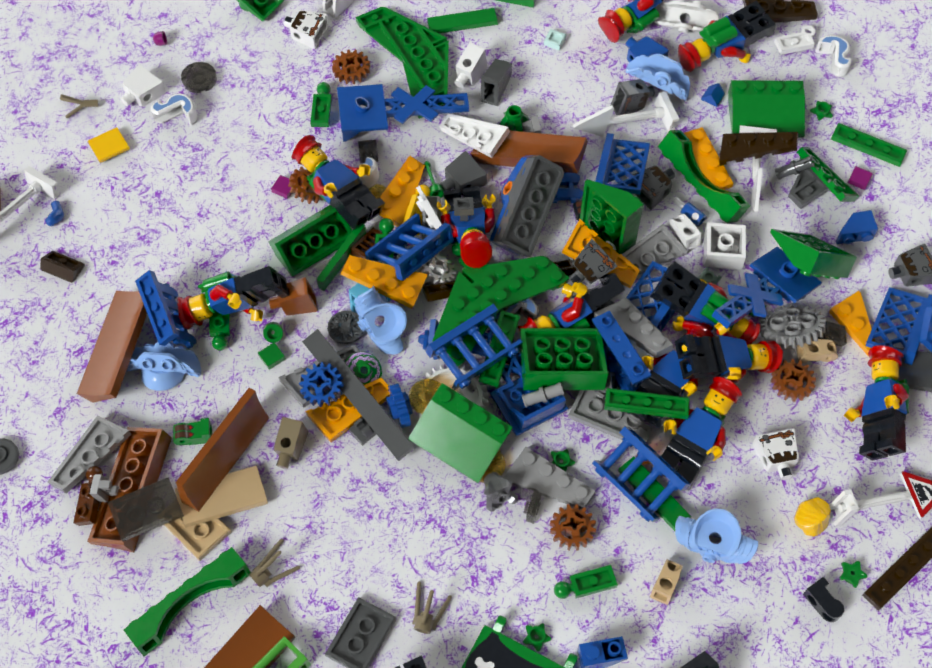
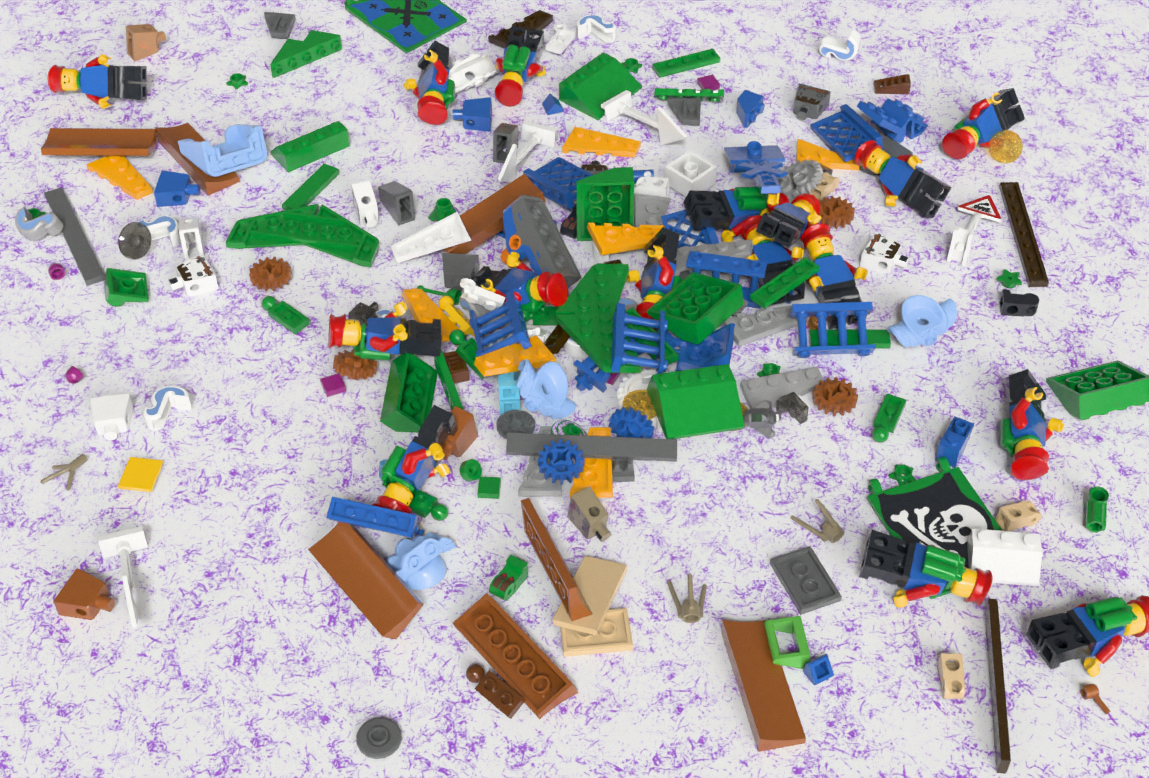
camera: 50 degrees left, 15 degrees down
(56, 215) = (168, 551): blue arm -> none
(61, 266) = (228, 581): dark brown slope -> none
(91, 449) = (449, 662): light grey wing -> none
(102, 488) = (502, 666): light grey tile -> none
(145, 509) = (556, 646): clear smoke tile -> none
(150, 628) = (670, 714): green arch -> none
(198, 77) = (149, 374): clear smoke tile -> none
(374, 116) = (326, 287): blue piece -> none
(463, 207) = (509, 271): dark grey tile -> none
(532, 125) = (464, 205): light grey tile -> none
(543, 394) = (715, 334): light grey pin -> none
(555, 39) = (396, 151): light aqua tile -> none
(591, 264) = (634, 240): torso -> none
(661, 73) = (508, 109): light blue piece -> none
(666, 582) = (929, 373): tan leg -> none
(680, 152) = (582, 147): green arch -> none
(756, 145) = (624, 109): dark brown wing -> none
(794, 167) = (667, 101): dark grey pin -> none
(813, 516) = (949, 269): yellow hair -> none
(814, 255) = (759, 129): green slope -> none

